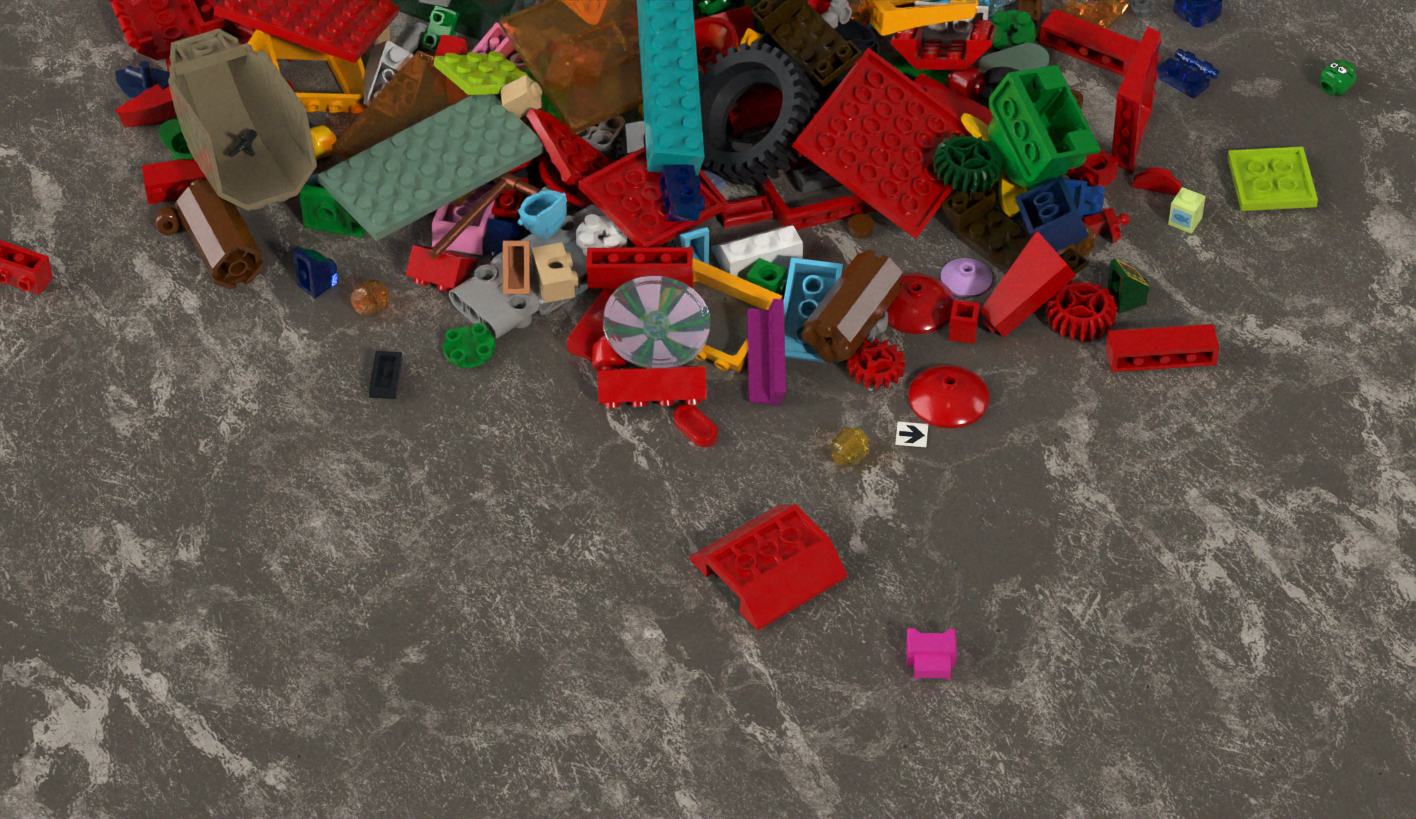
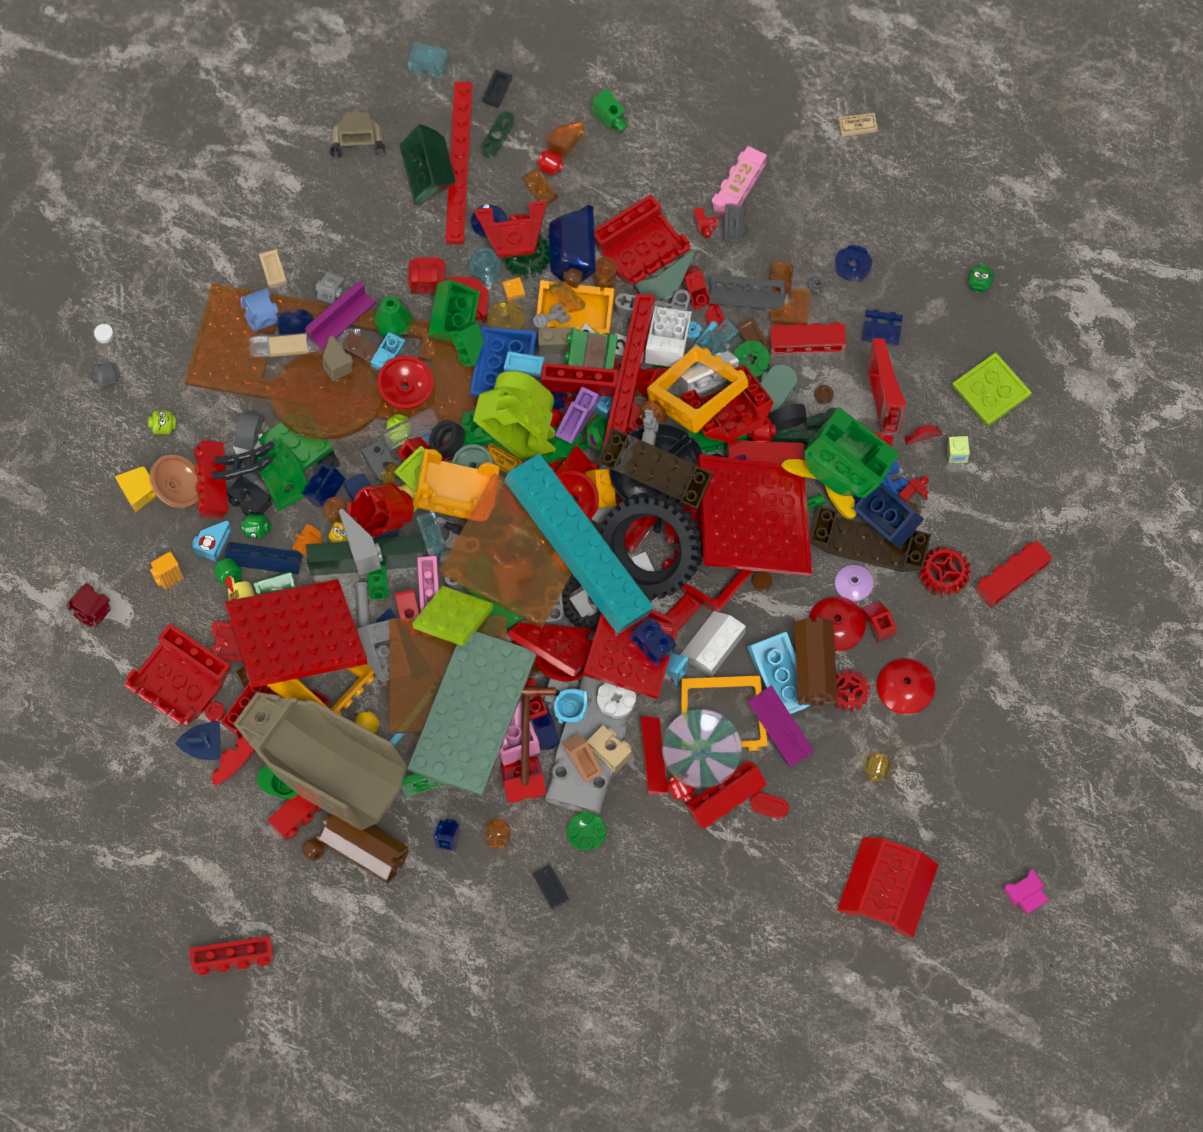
camera: 30 degrees left, 20 degrees up
(245, 143) = (331, 765): black bar -> none
(521, 96) = (495, 624): tan brick -> none
(619, 265) = (662, 712): red brick -> none
(768, 276) = (732, 658): green brick -> none
(911, 434) = (902, 729): white sticker -> none
(967, 163) = (819, 496): dark green gear -> none
(1026, 286) = (909, 575): red slope -> none
(1127, 286) = (962, 537): dark green slope -> none

